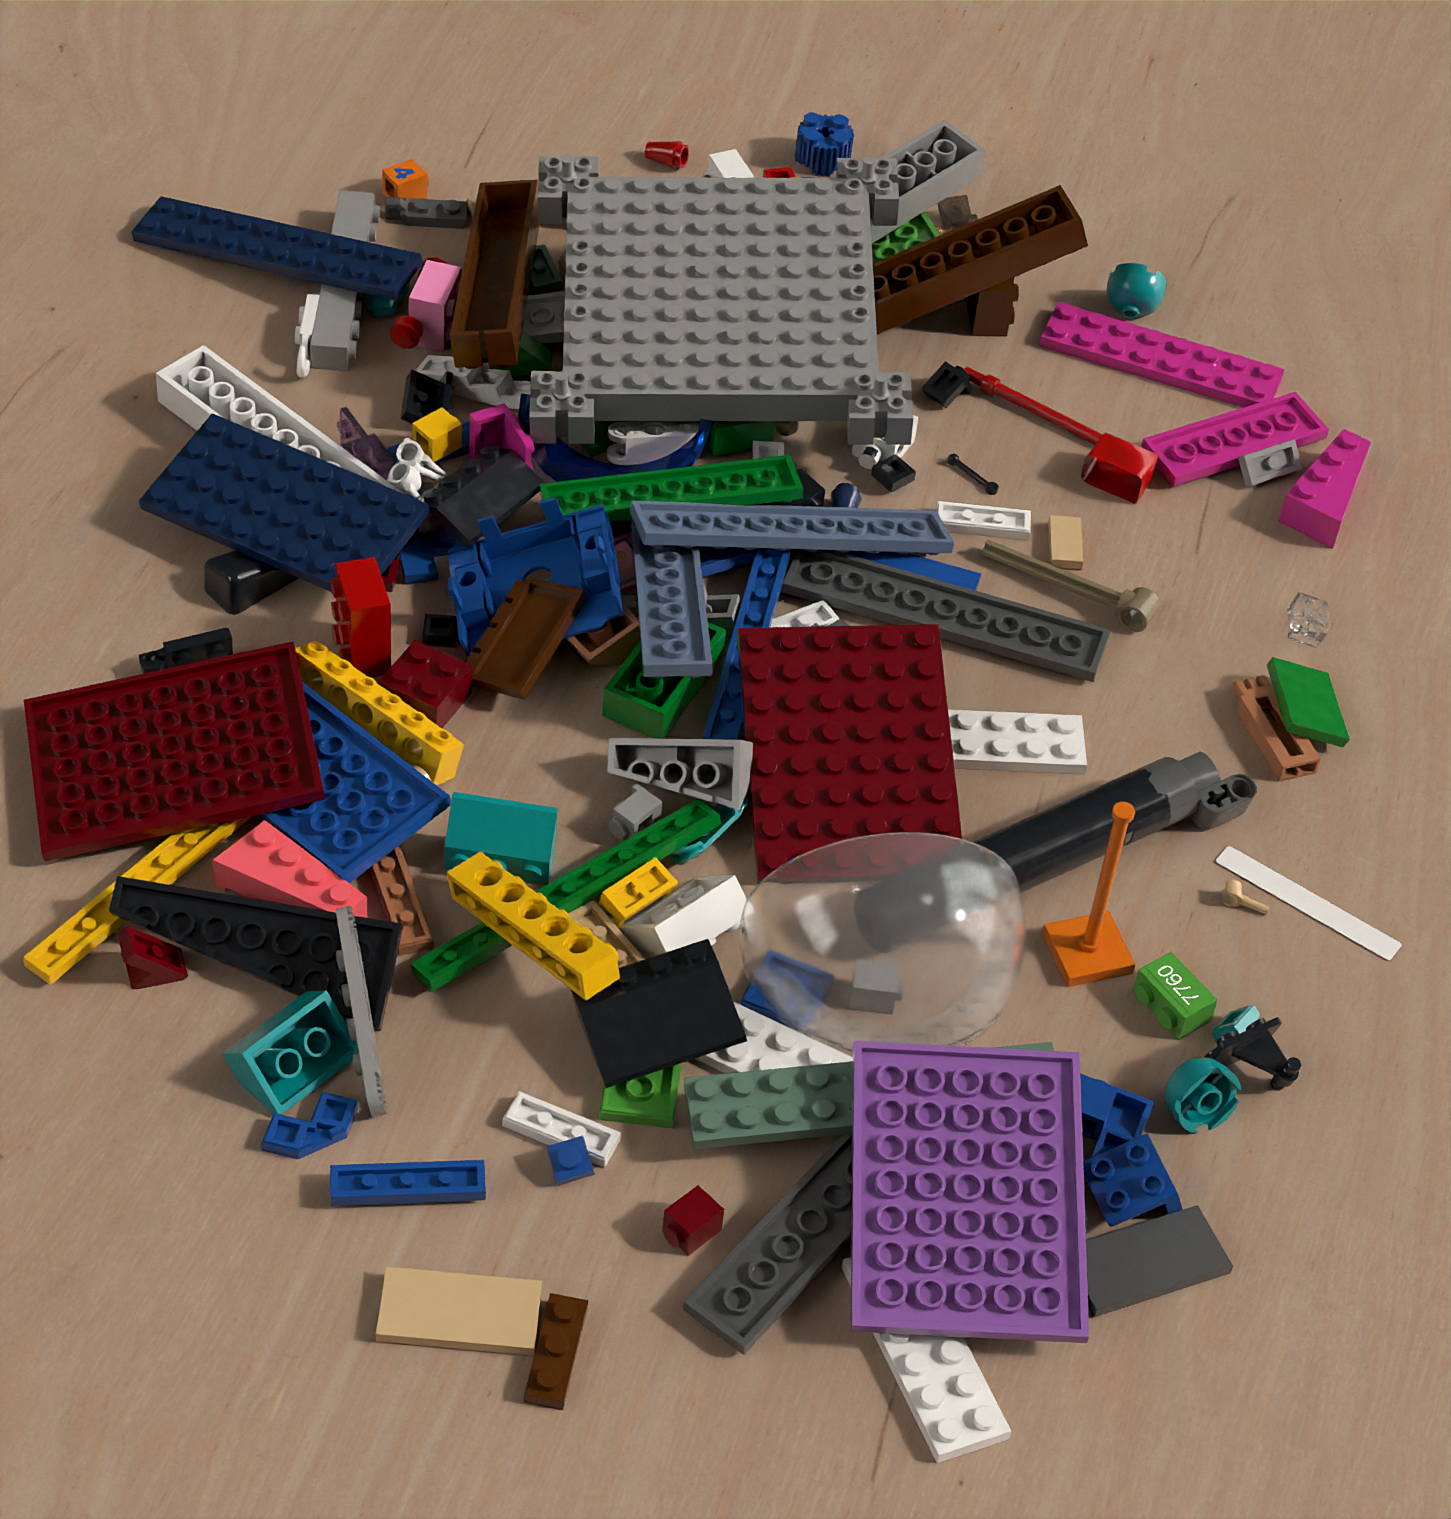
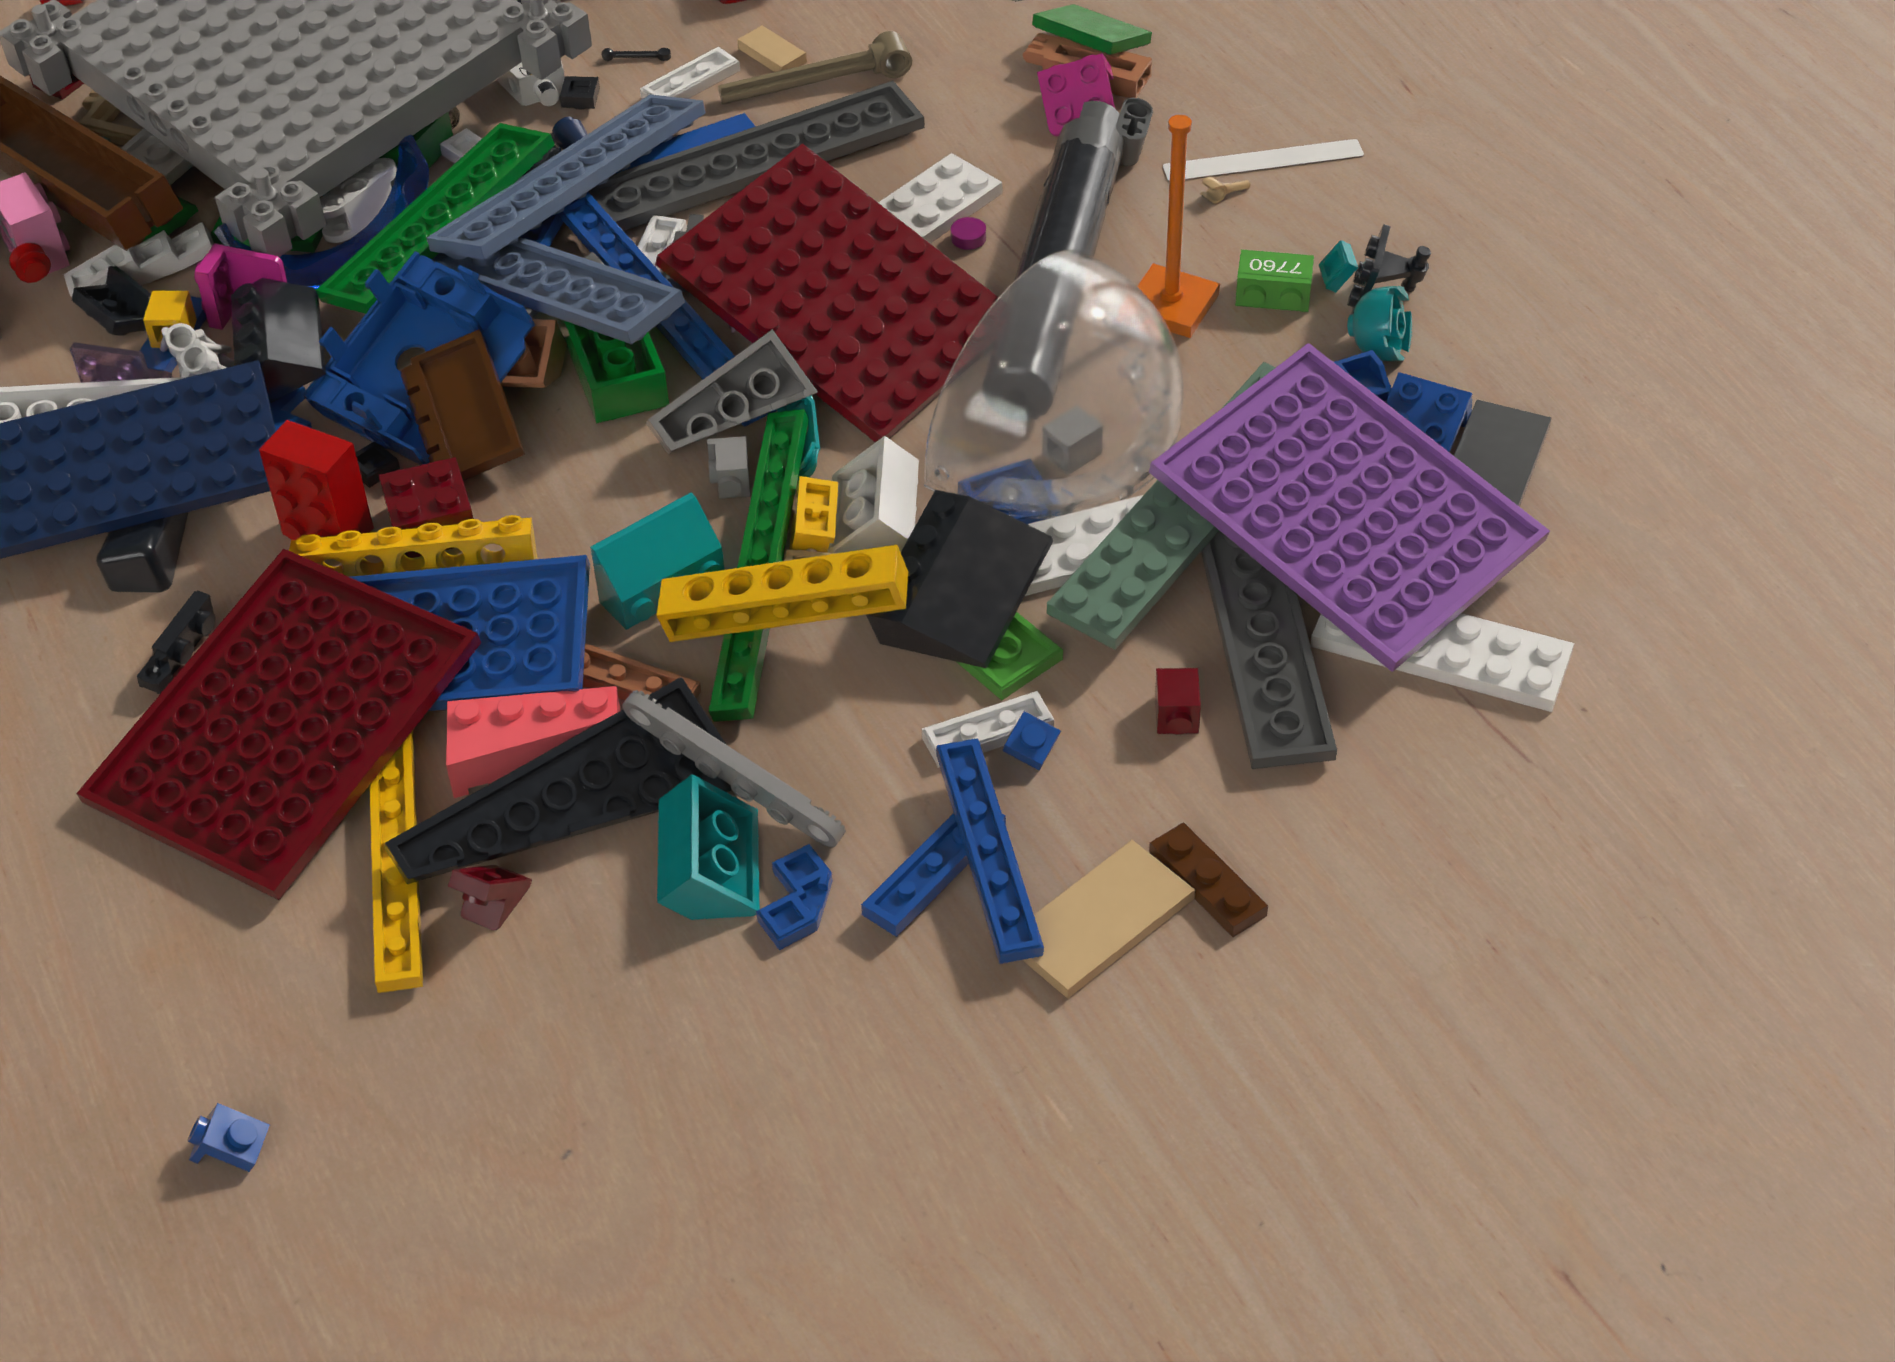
camera: 40 degrees left, 0 degrees up
(442, 1203) = (989, 851): none -> blue tile
(1015, 783) = (968, 233): none -> magenta tile
(1226, 738) = (1070, 85): none -> dark pink bracket

